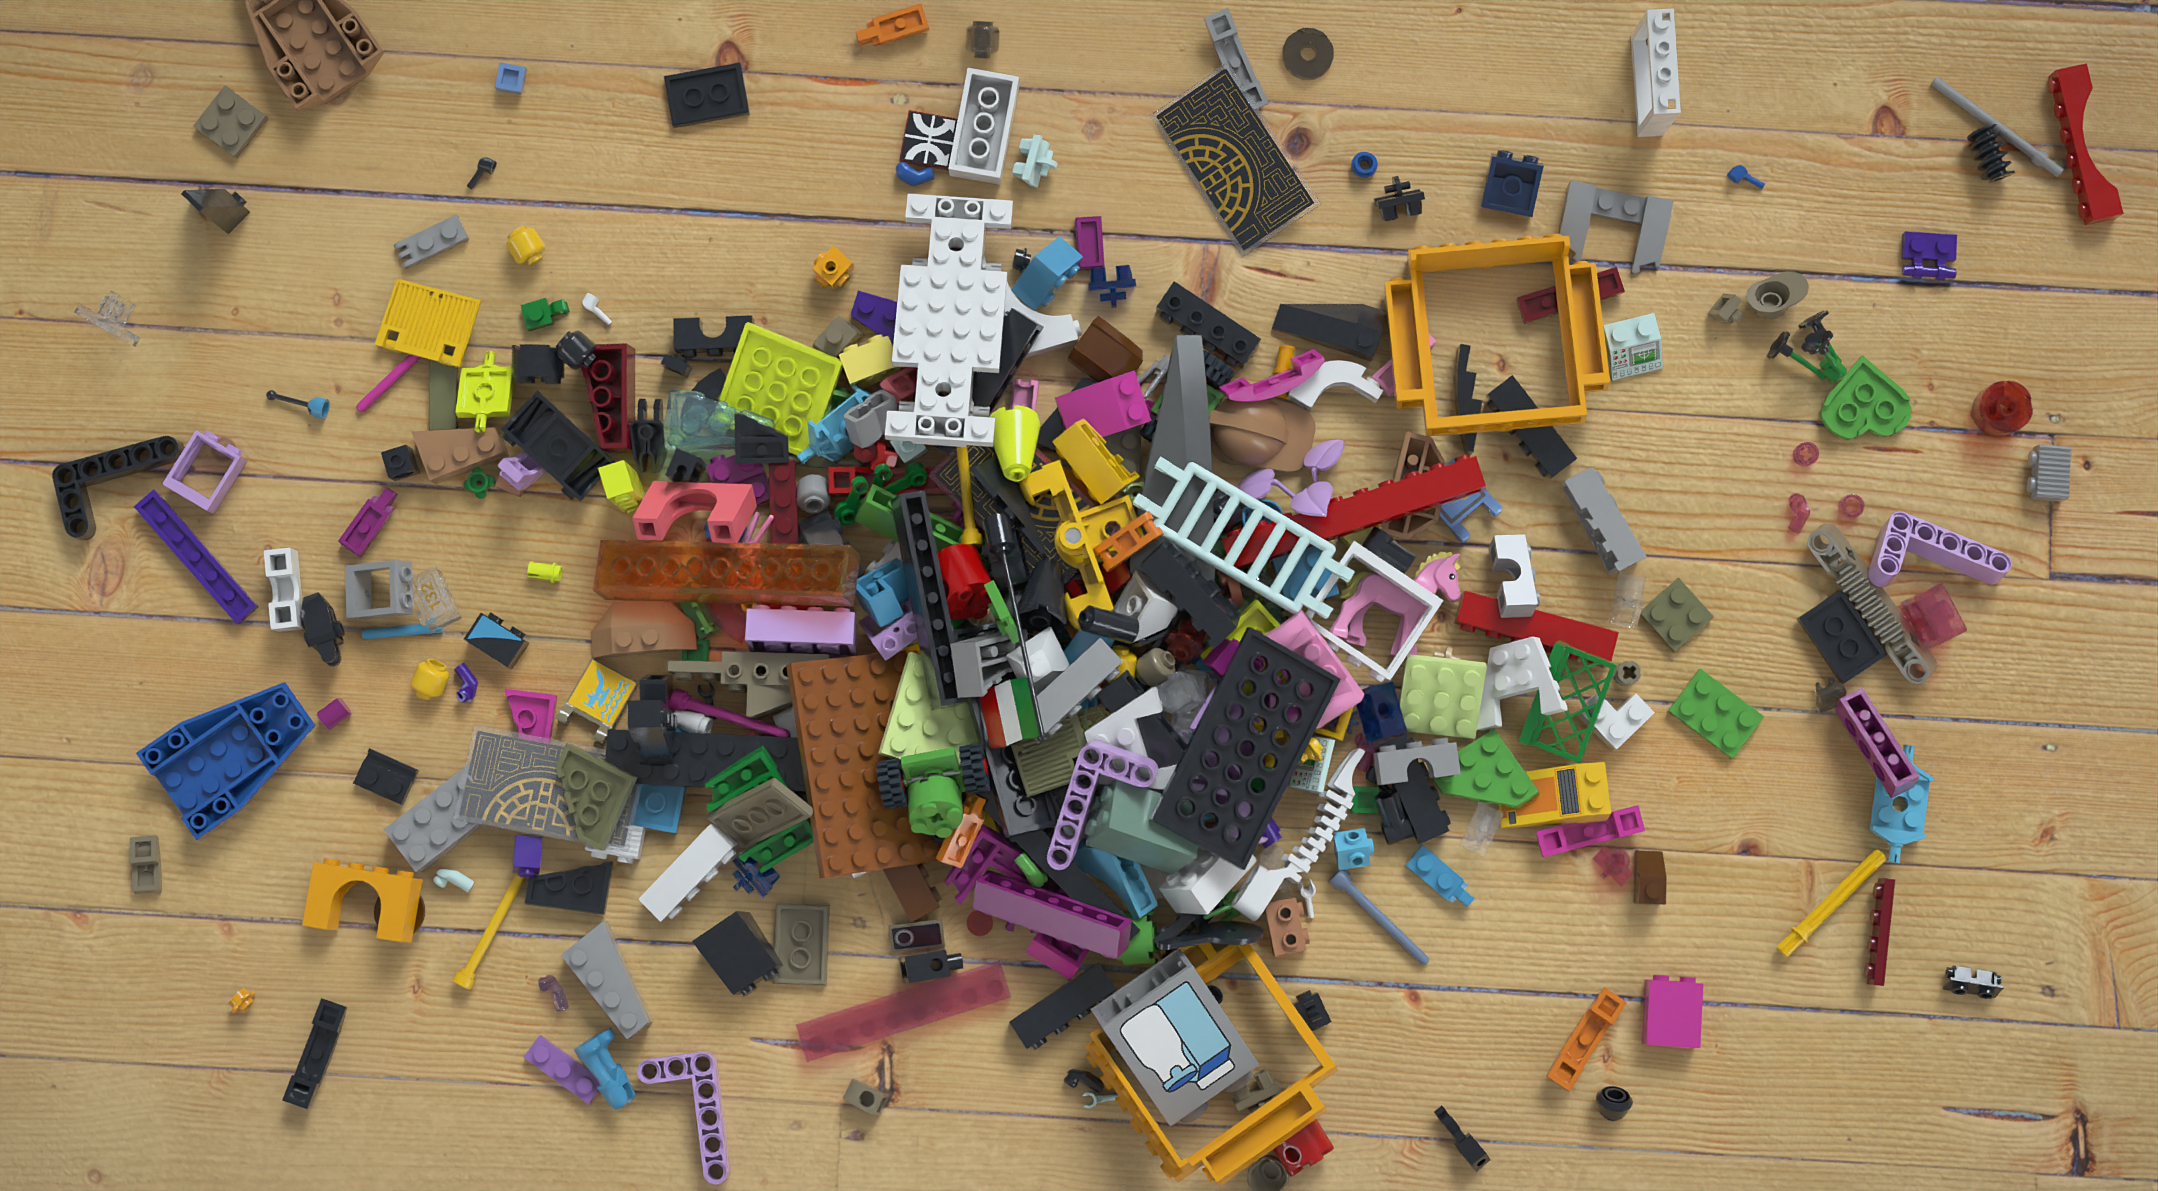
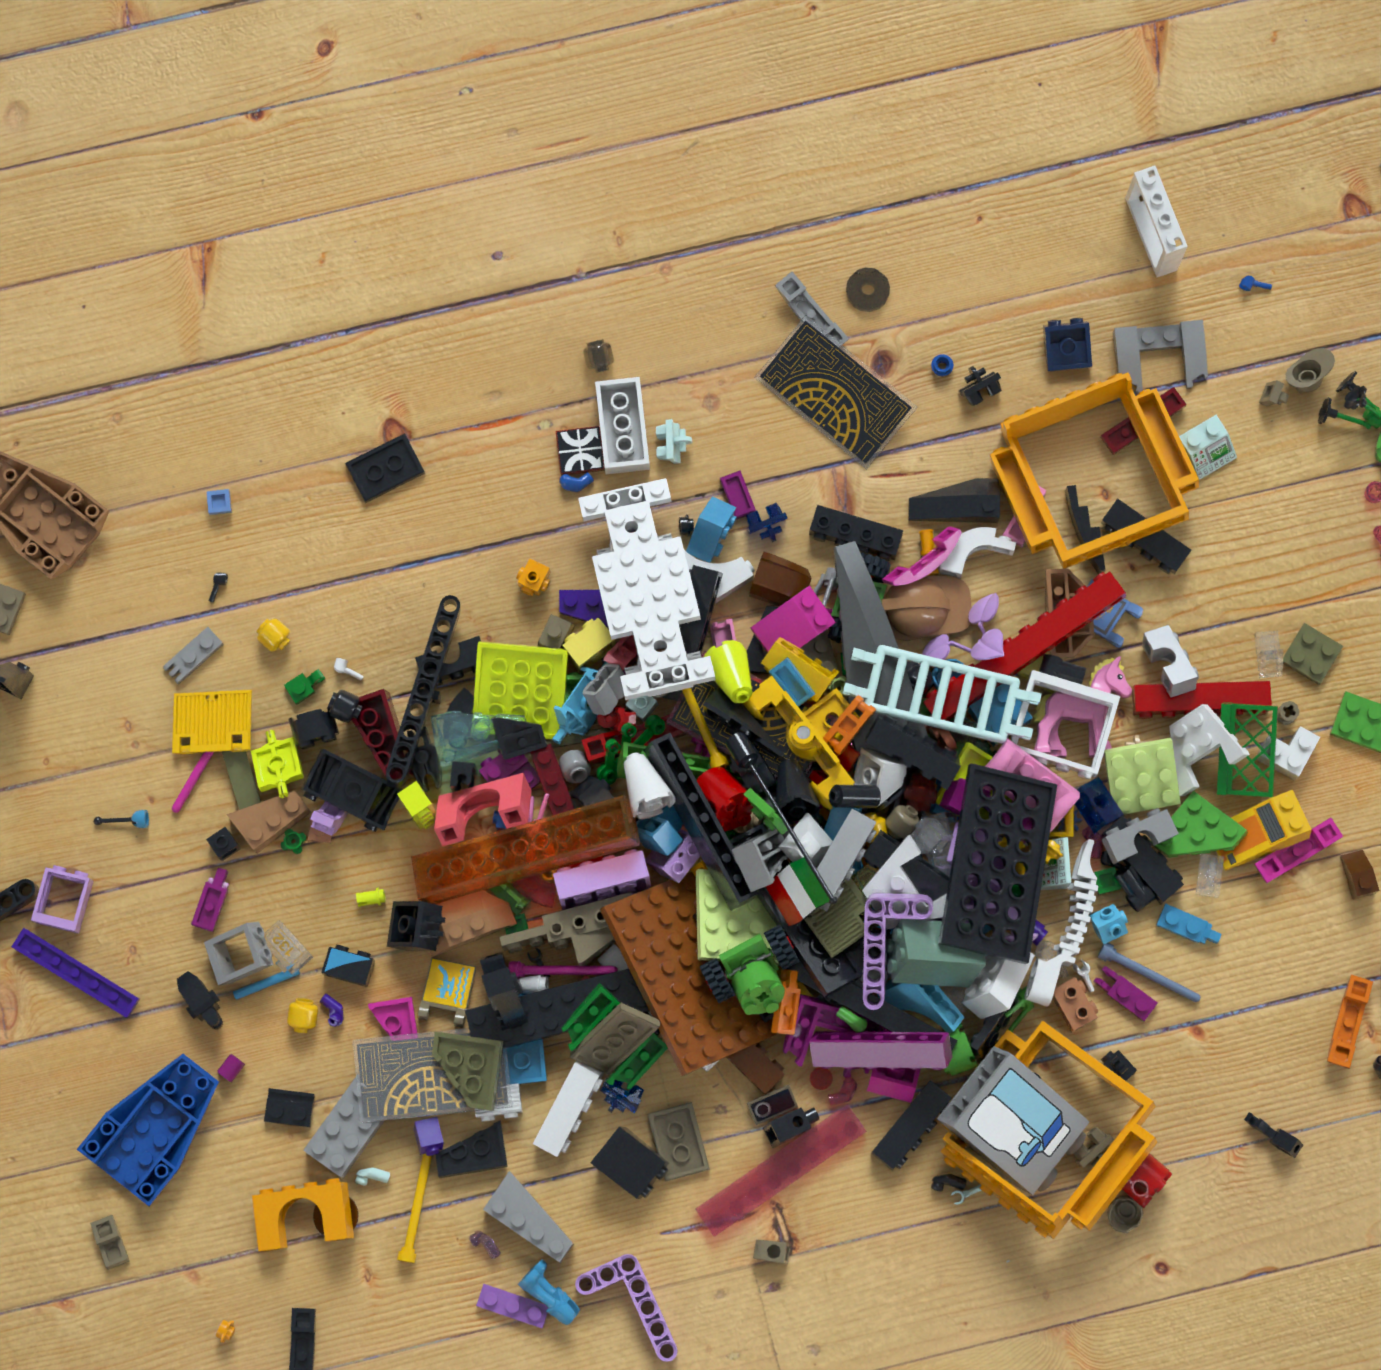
camera: 15 degrees left, 5 degrees down
(284, 575) = (159, 977): white arch -> none
(581, 619) = (415, 926): none -> black hinge
(667, 372) = (423, 701): none -> black beam
(878, 544) = (645, 787): none -> white cone
(894, 26) = (522, 366): orange hinge -> none
(1001, 947) = (846, 1092): none -> clear pink arm
(1080, 474) = (792, 681): none -> dark azure tile
(1217, 932) = (1021, 1024): black piece -> none
(1348, 933) = (1127, 994): none -> magenta hinge
(1603, 521) = (1228, 595): light grey wedge -> none
(1615, 864) = (1327, 872): clear pink piece -> none

